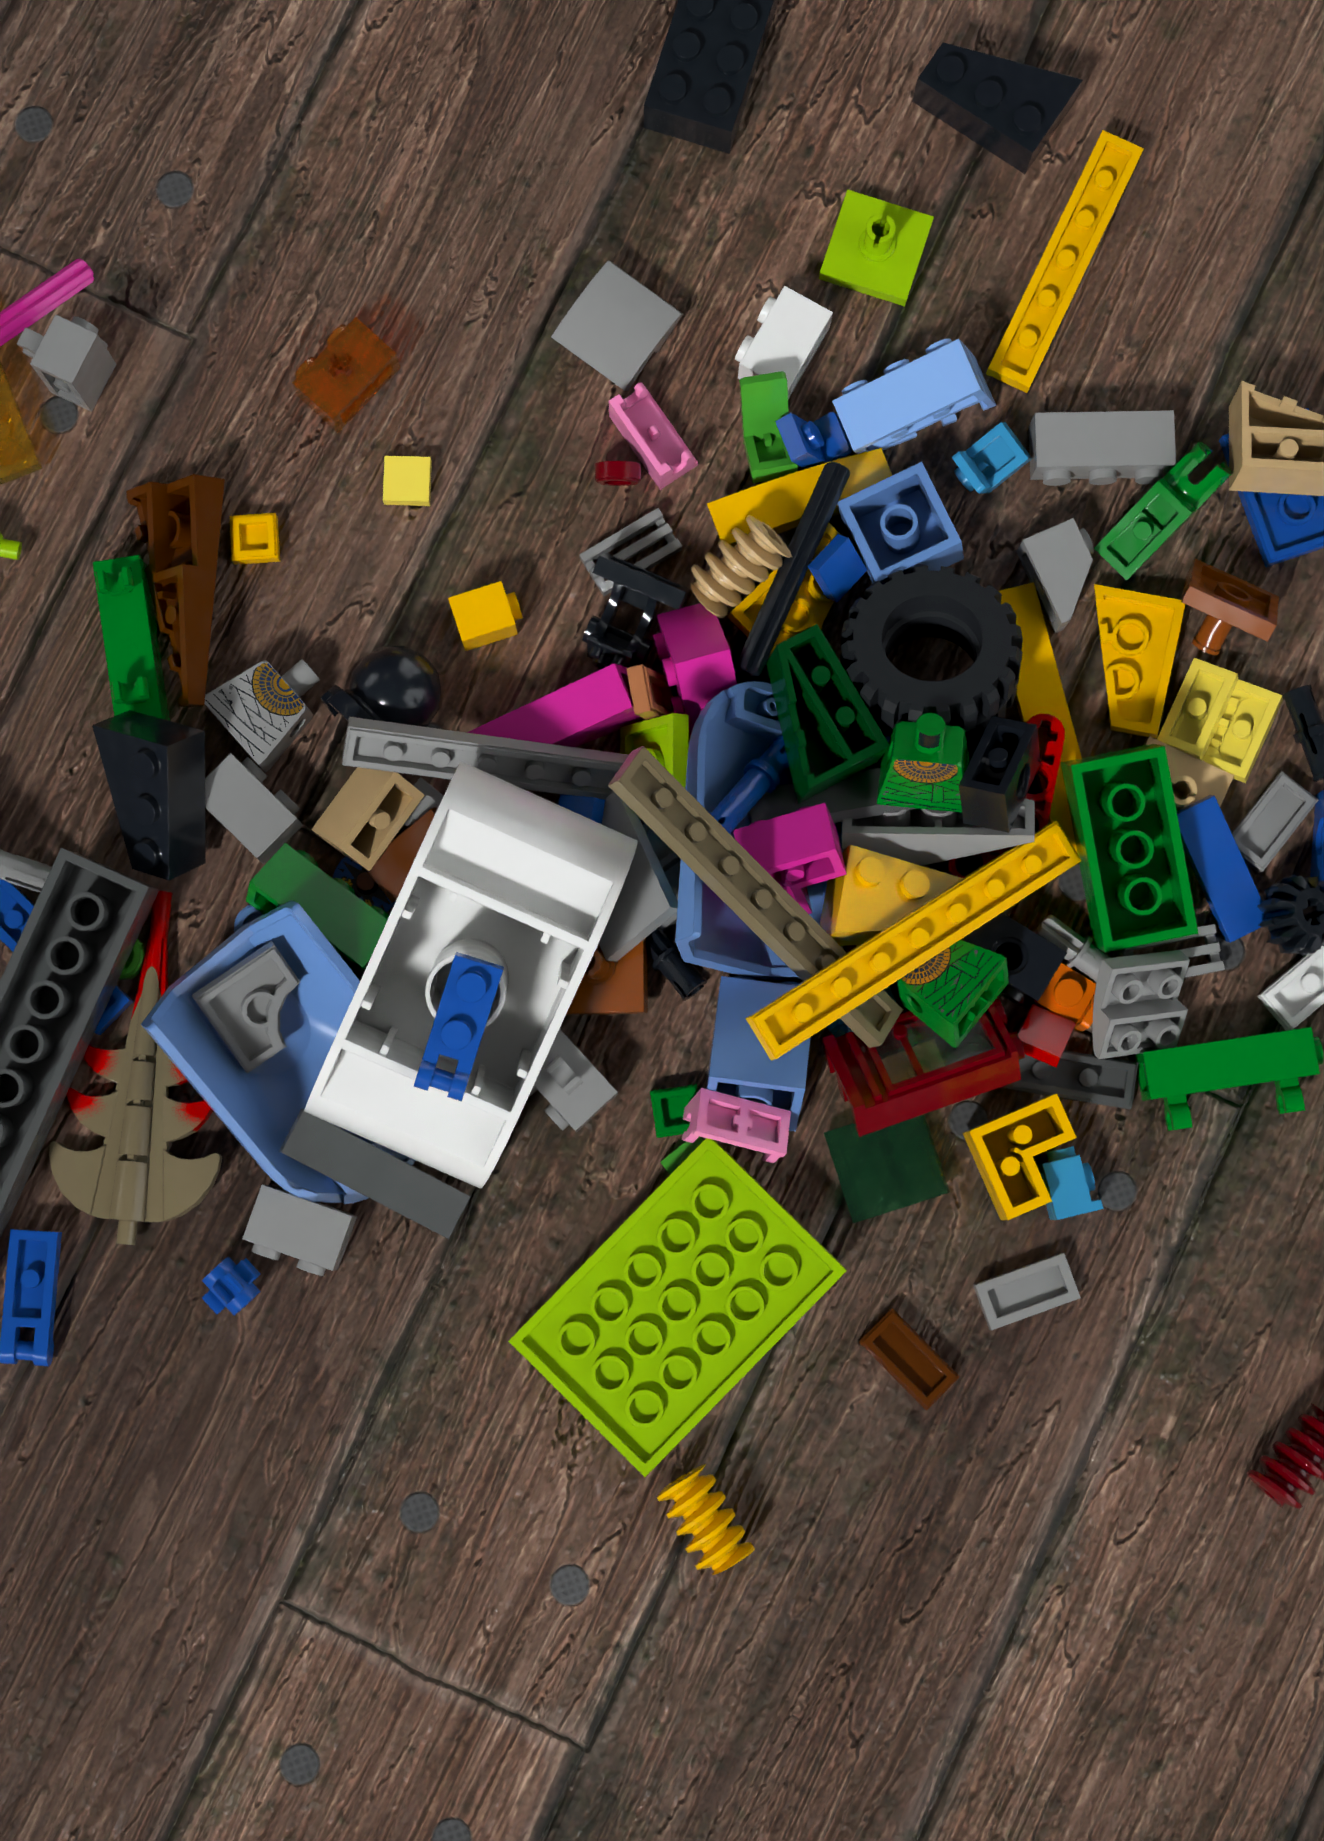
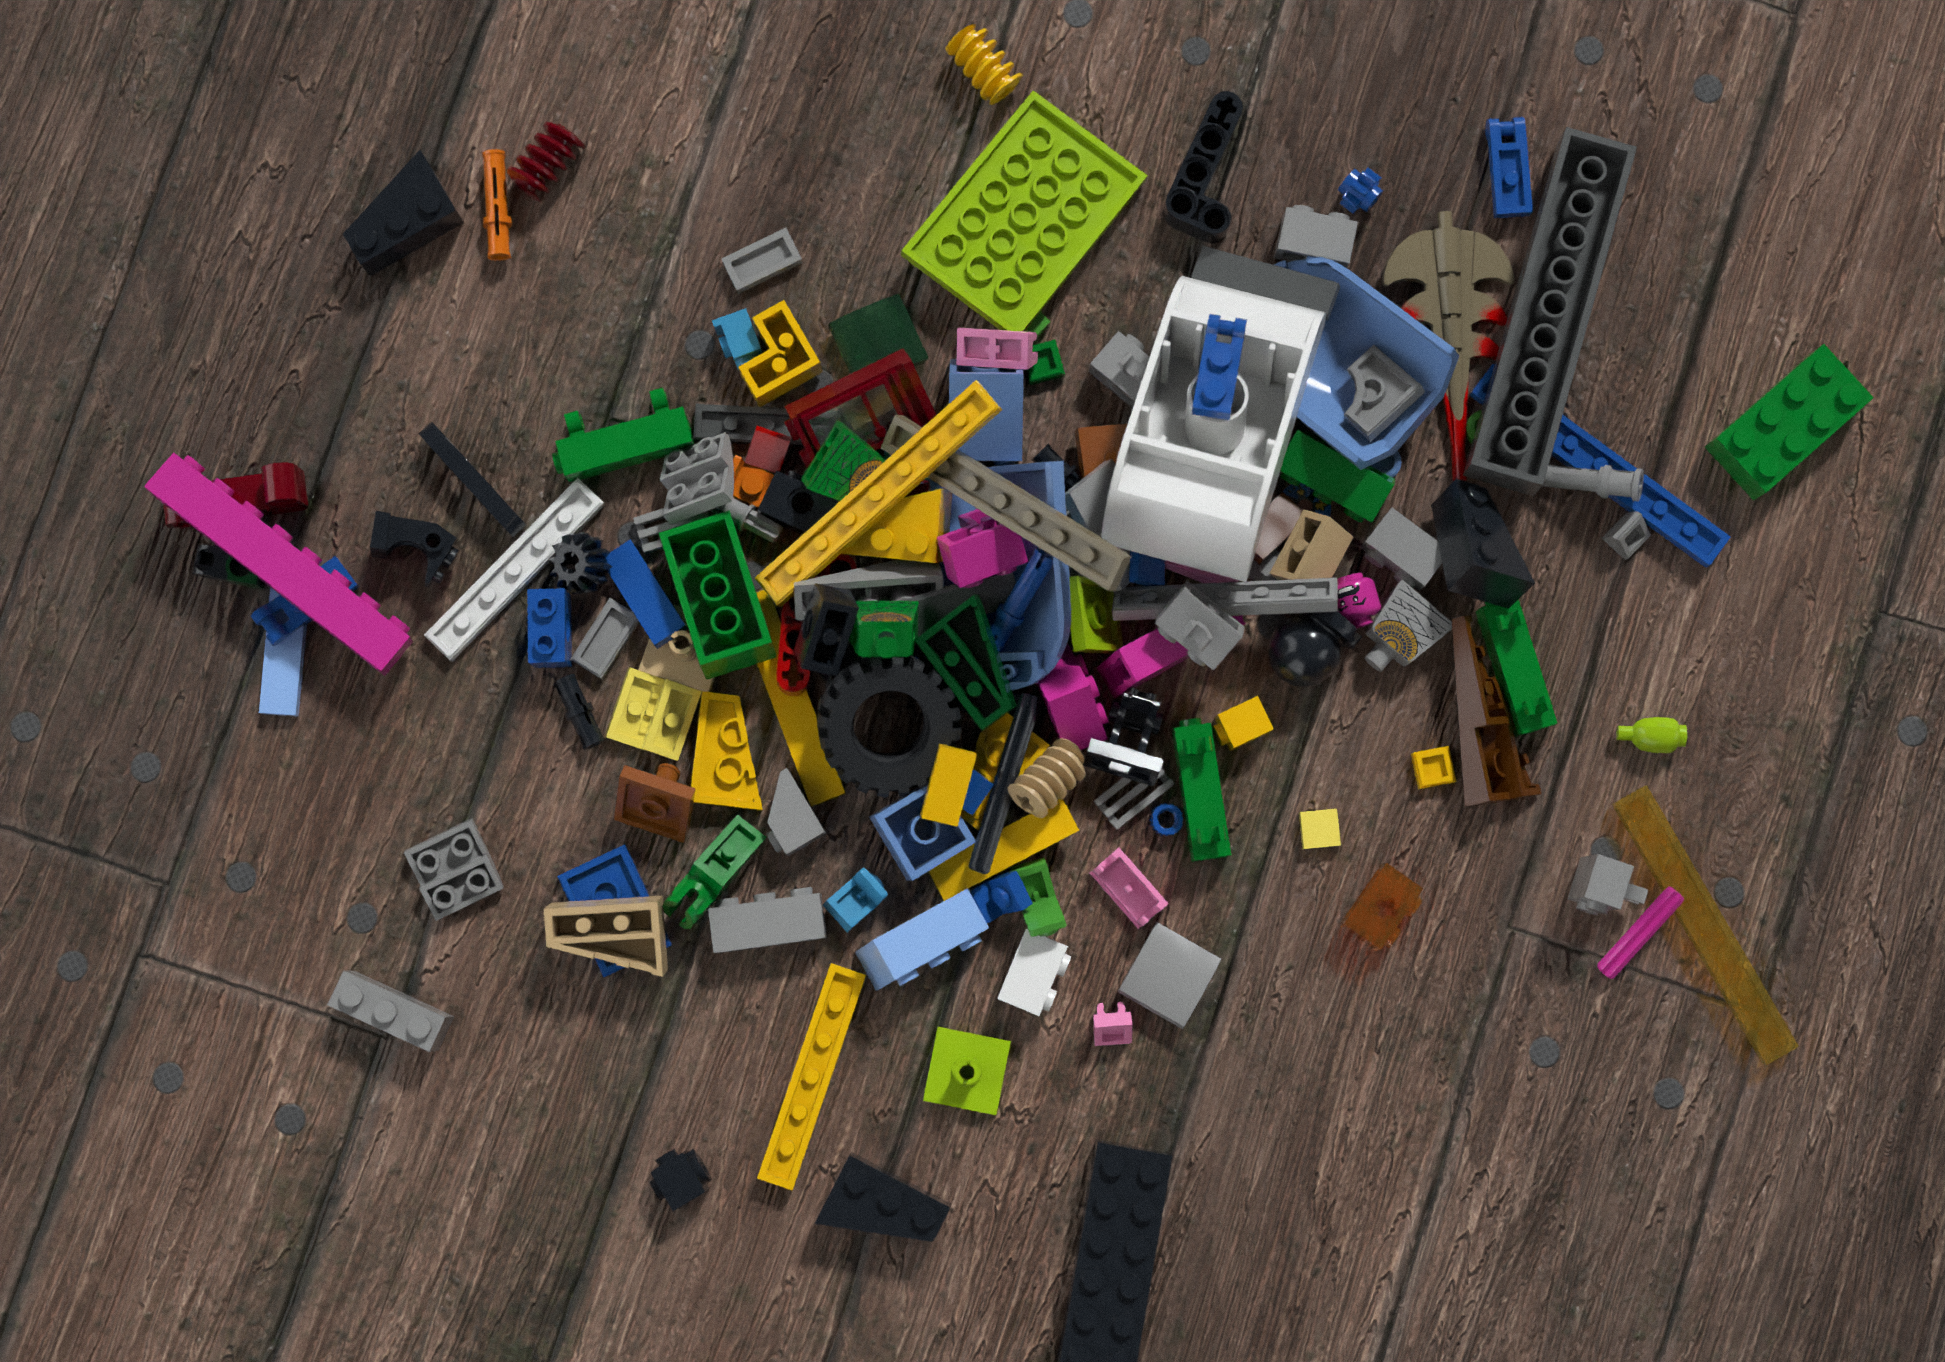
camera: 175 degrees right, 0 degrees up
(319, 751) = (1358, 599): none -> dark pink head
(425, 1347) = (1207, 163): none -> black beam
(525, 721) = (1199, 626): none -> light grey brick
(548, 539) = (1201, 790): none -> green brick
(596, 529) = (1176, 812): none -> blue axle
(617, 473) = (1152, 853): dark red tile -> none
(649, 692) = (1106, 668): nougat tile -> none
(694, 272) = (1112, 1027): none -> bright pink tile
(866, 565) = (948, 785): none -> yellow tile
(908, 1359) = (845, 201): reddish brown tile -> none
(1235, 160) = (680, 1177): none -> black brick

